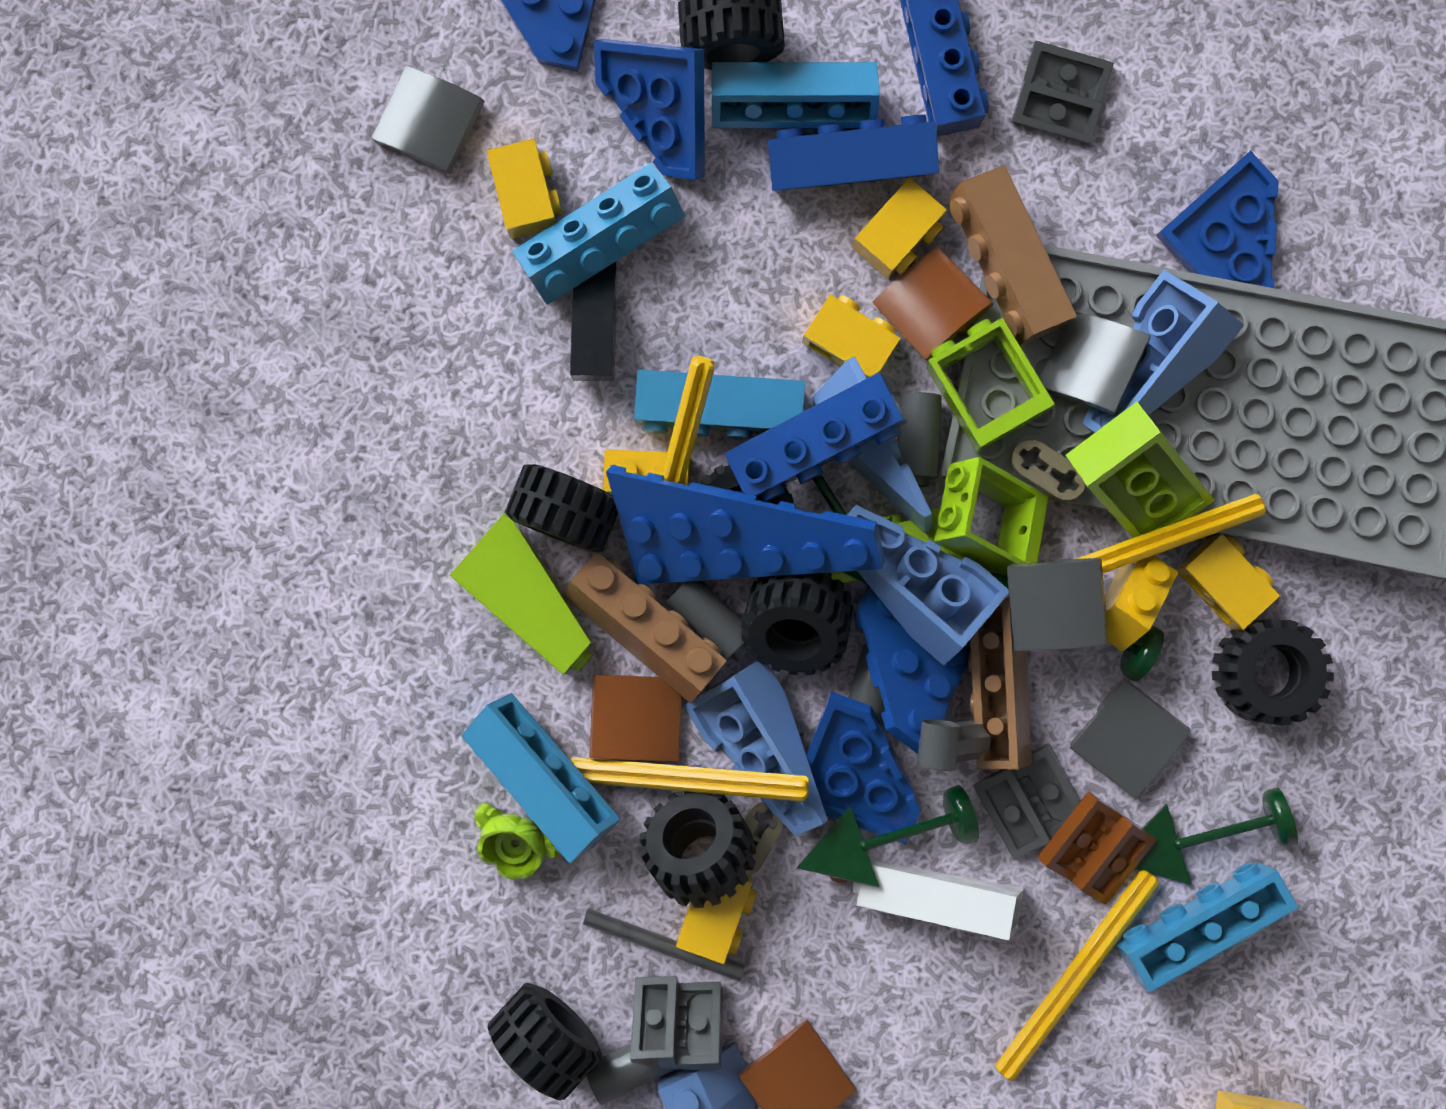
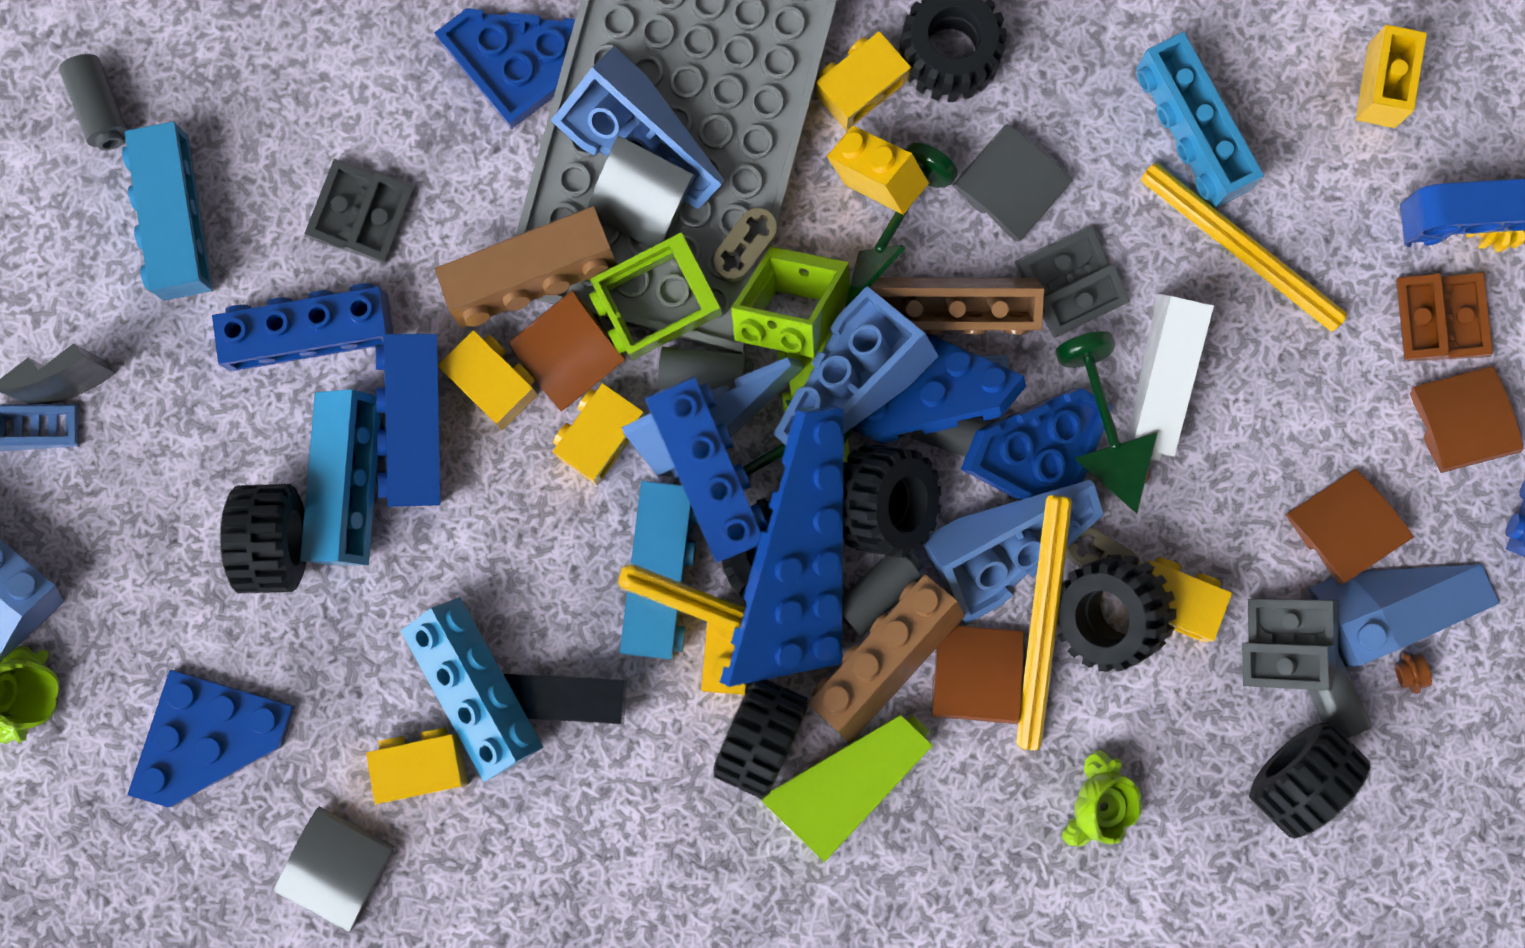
camera: 85 degrees left, 5 degrees down
(540, 777) = (1038, 774): dark azure brick -> none
(659, 100) = (328, 615): blue plate -> none
(659, 943) = (1207, 662): flat silver bar -> none
(949, 742) = (1016, 352): dark grey piece -> none
(1057, 604) = (883, 240): dark grey slope -> none
(1096, 848) = (1120, 220): dark orange slope -> none
(1138, 474) = (758, 155): lime slope -> none
(1166, 856) = (1120, 162): dark green piece -> none
(1180, 533) = (827, 157): yellow axle -> none

